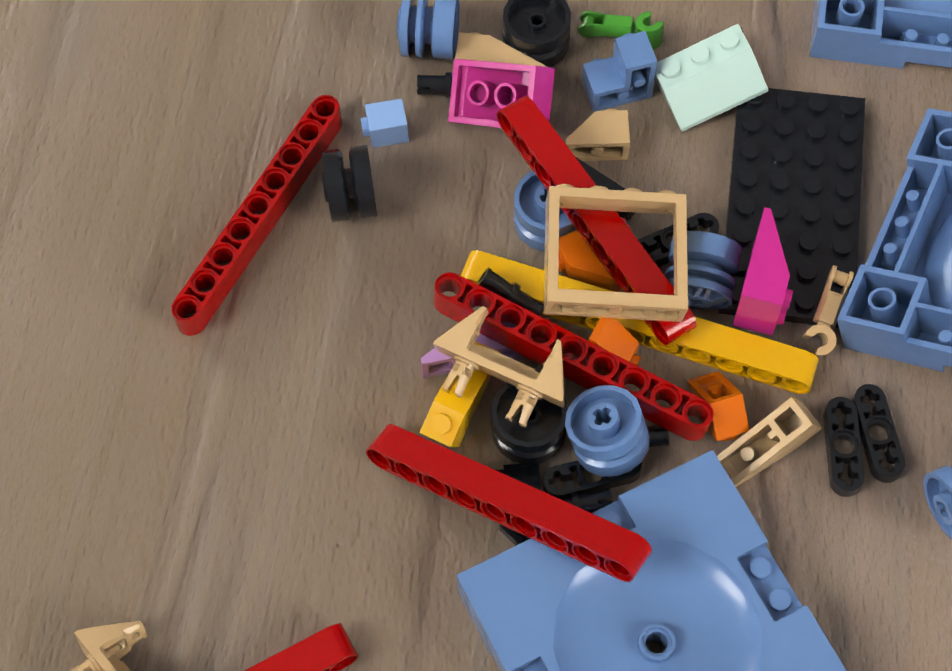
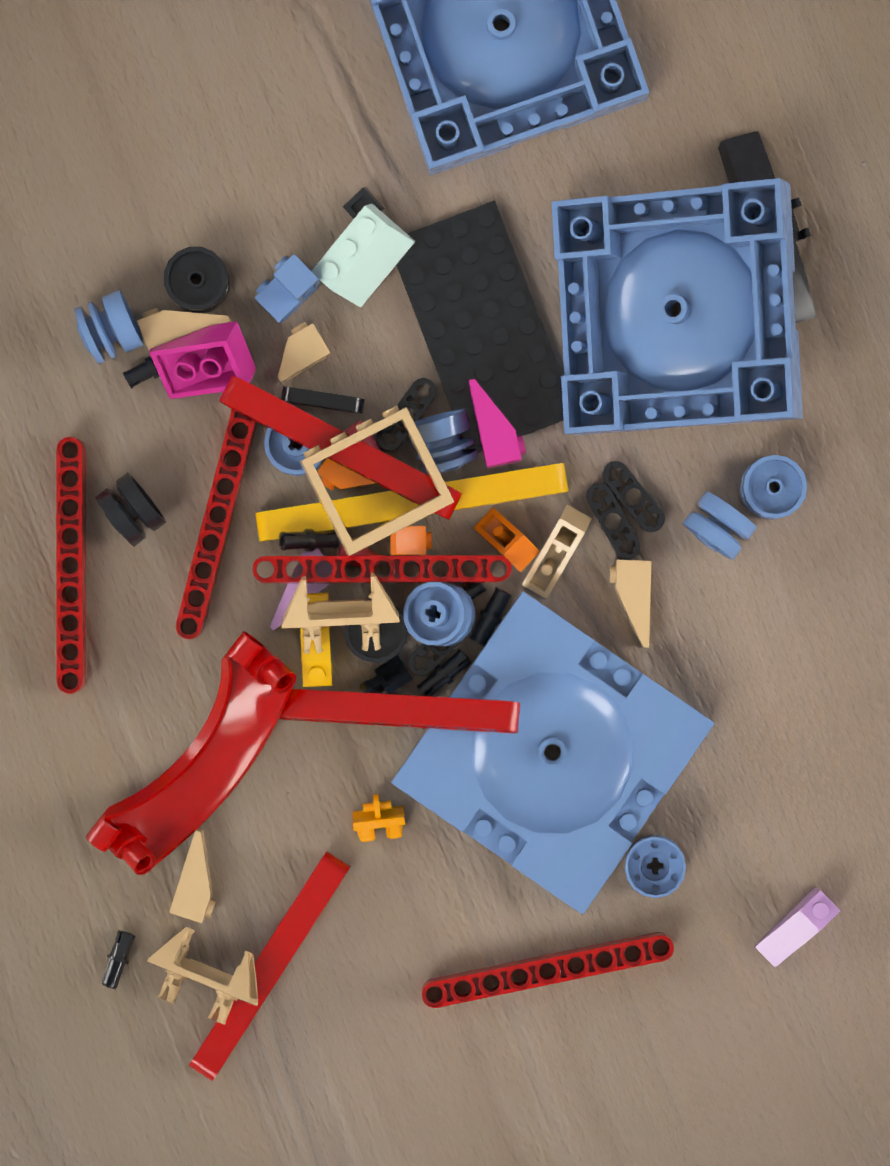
camera: 35 degrees left, 25 degrees up
(46, 619) = (118, 958): none -> black axle
(178, 583) = (194, 888): none -> tan slope
(218, 490) = (179, 801): none -> red panel
(385, 123) = (122, 432): light blue brick -> none
(424, 250) = (210, 527): none -> red beam
(433, 628) = (378, 815): none -> light orange hips
(615, 26) = (263, 234): bright green piece -> none
(660, 467) = (490, 616): none -> black pin
(828, 311) = (554, 423): tan piece -> none
(832, 527) = (633, 588): none -> tan slope

